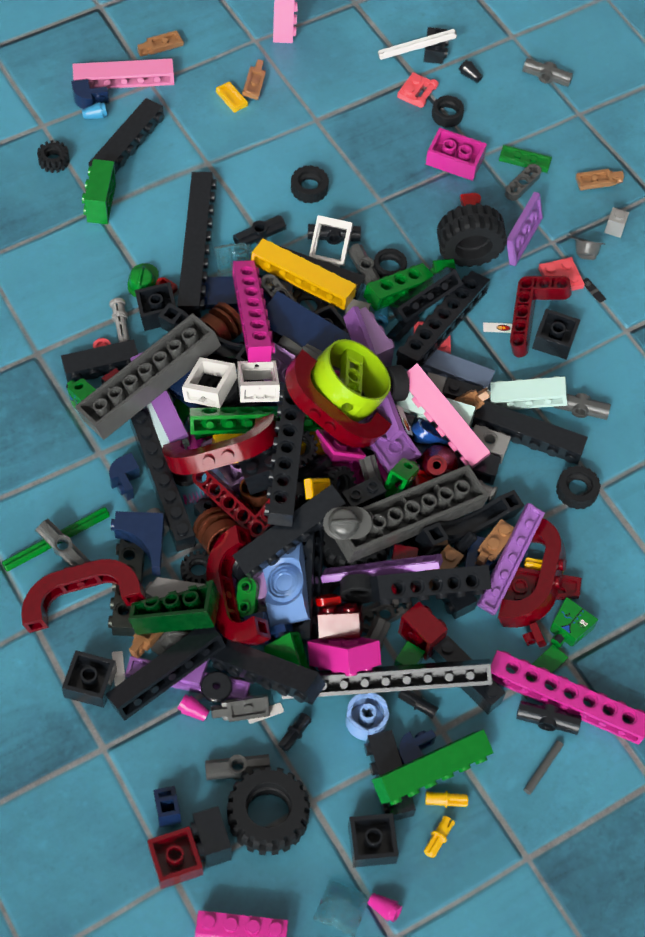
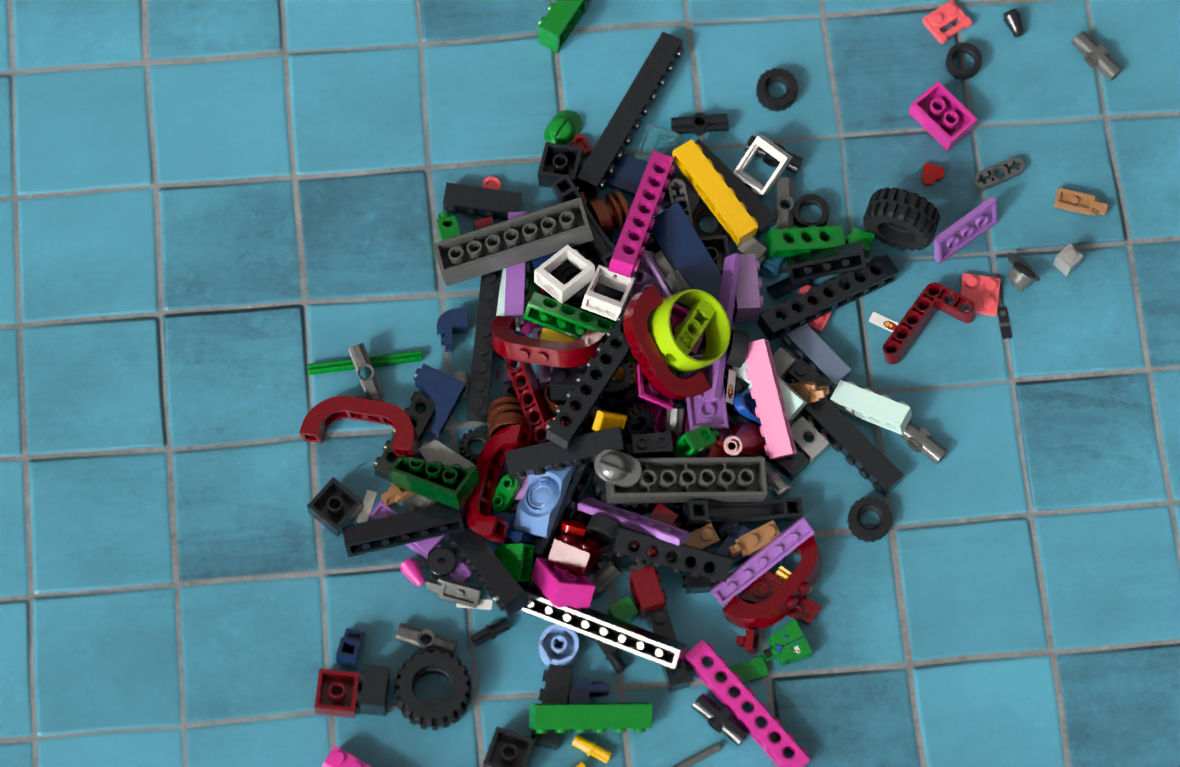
camera: 25 degrees right, 10 degrees up
(119, 317) = (521, 162): light grey pin -> none
(524, 158) = (1016, 147): green tile -> none
(556, 334) = (934, 356): black brick -> none

